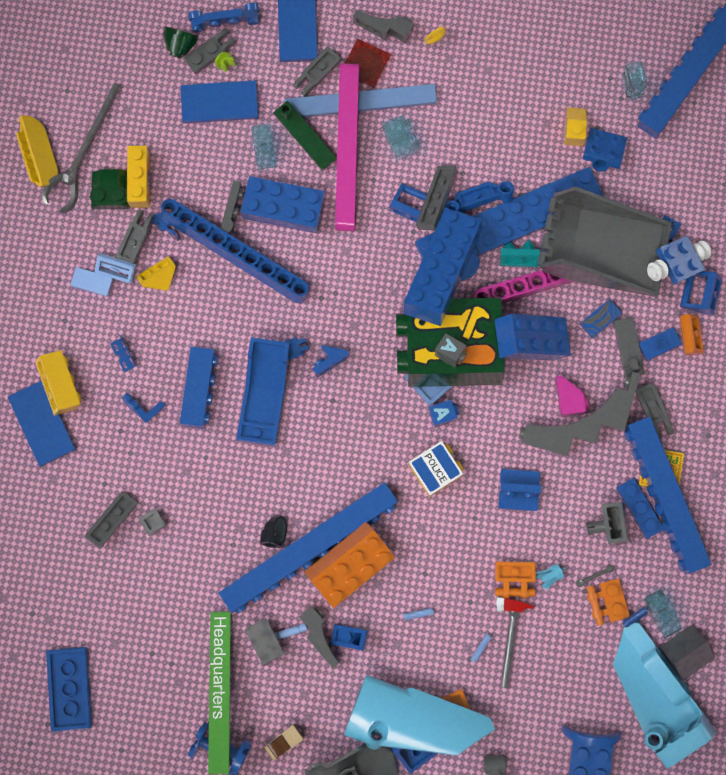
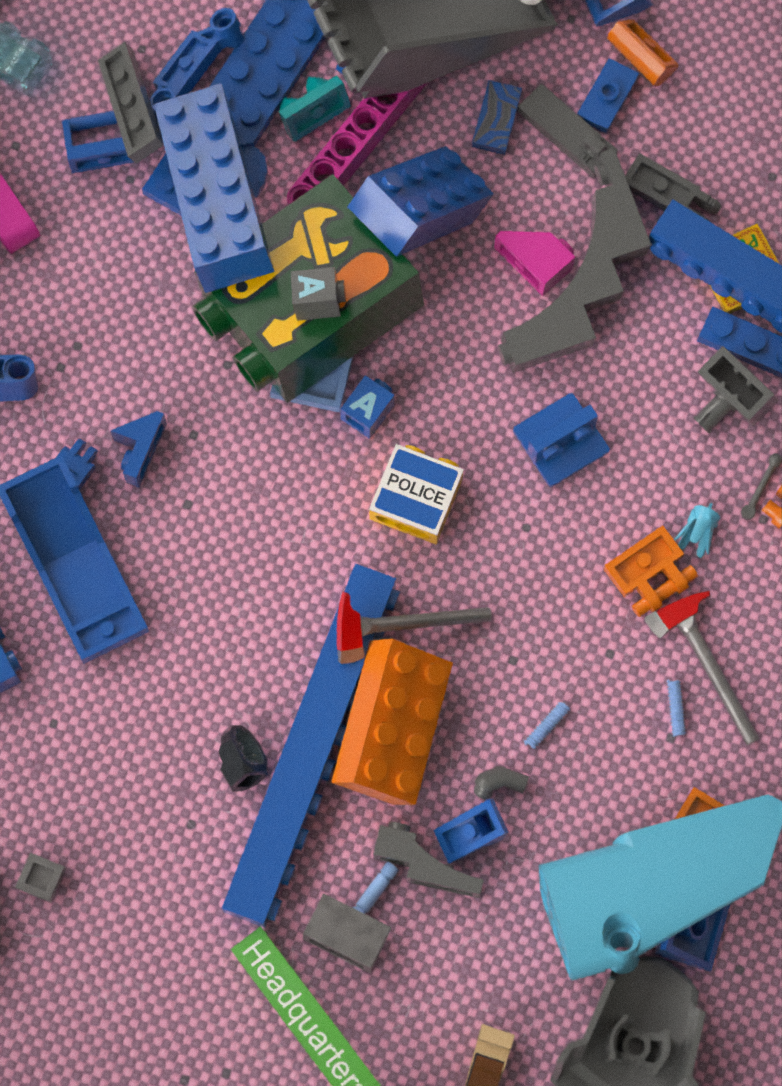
camera: 40 degrees left, 5 degrees down
(362, 510) = (353, 627): none -> flat silver piece
(378, 621) = (496, 778): none -> dark grey arm

